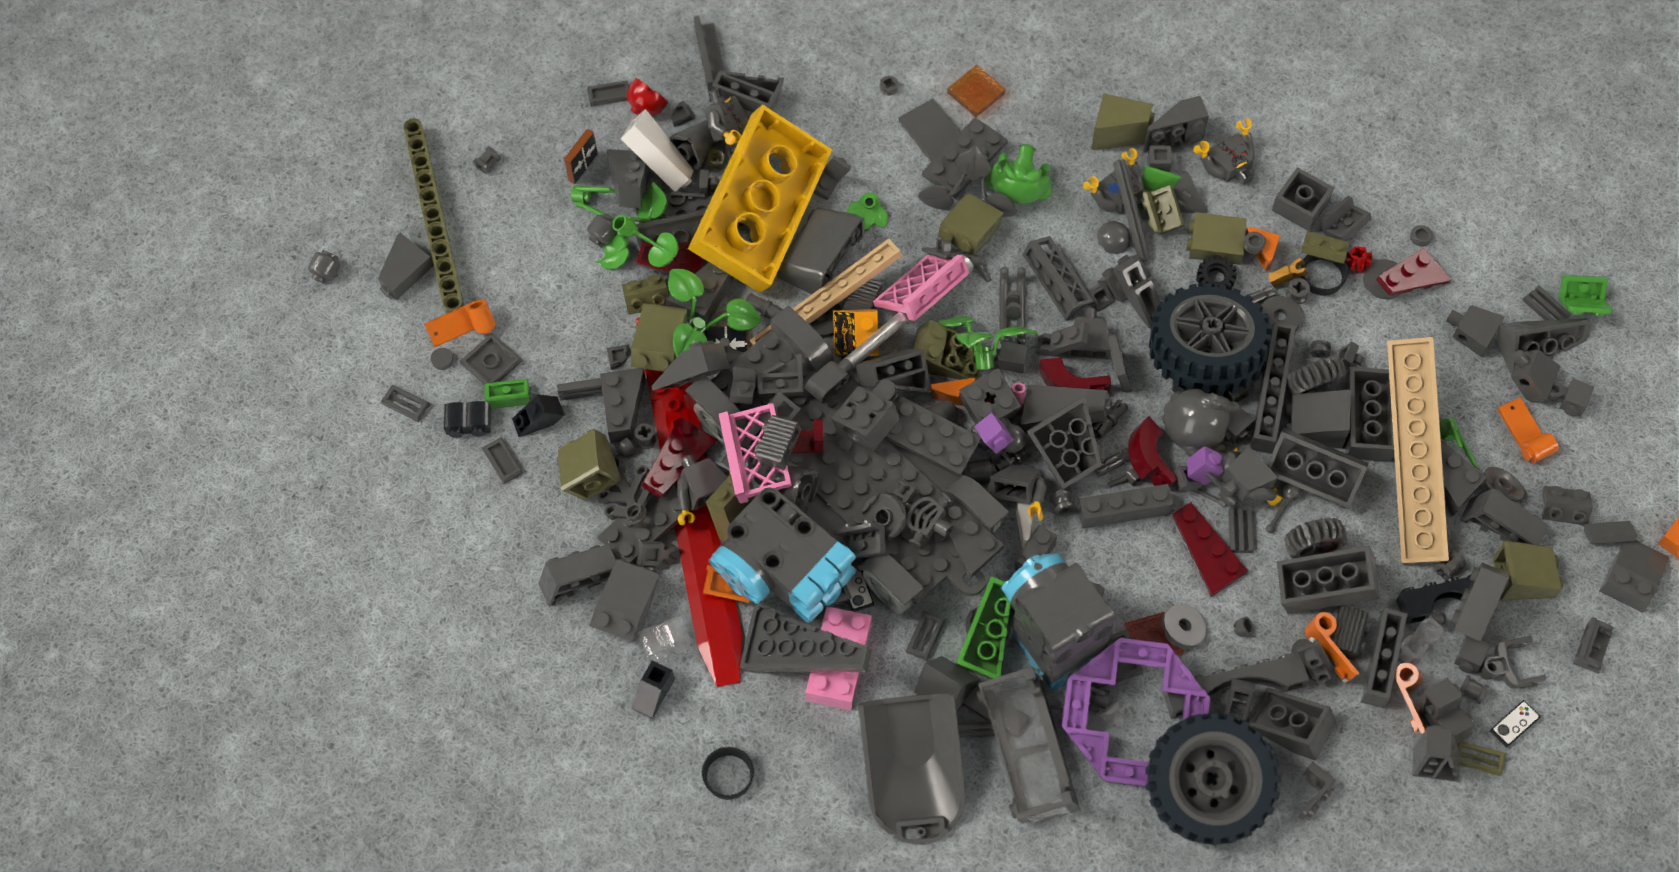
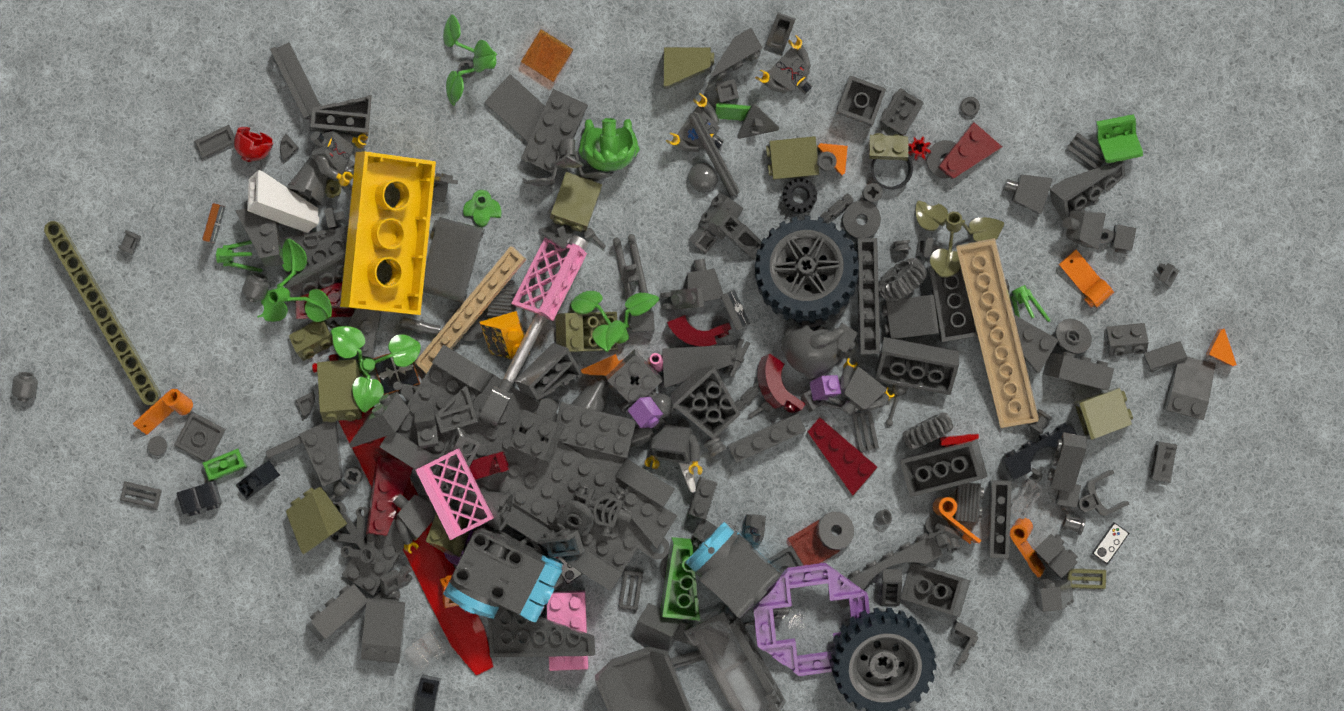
camera: 20 degrees left, 25 degrees up
(403, 267) = (93, 369): dark grey slope -> none
(502, 460) = (240, 525): dark grey tile -> none
(777, 442) = (472, 488): dark grey brick -> none
(906, 76) = (483, 59): none -> bright green plant
(1051, 277) = (658, 237): dark grey fence -> none
(1162, 210) = (740, 144): olive bracket -> none
(1231, 113) = (780, 31): none -> dark grey slope
(1287, 273) = (859, 180): pearl gold bar -> none
(1360, 330) = (945, 261): none -> olive plant
(1623, 447) = (1168, 275): none -> dark grey tile

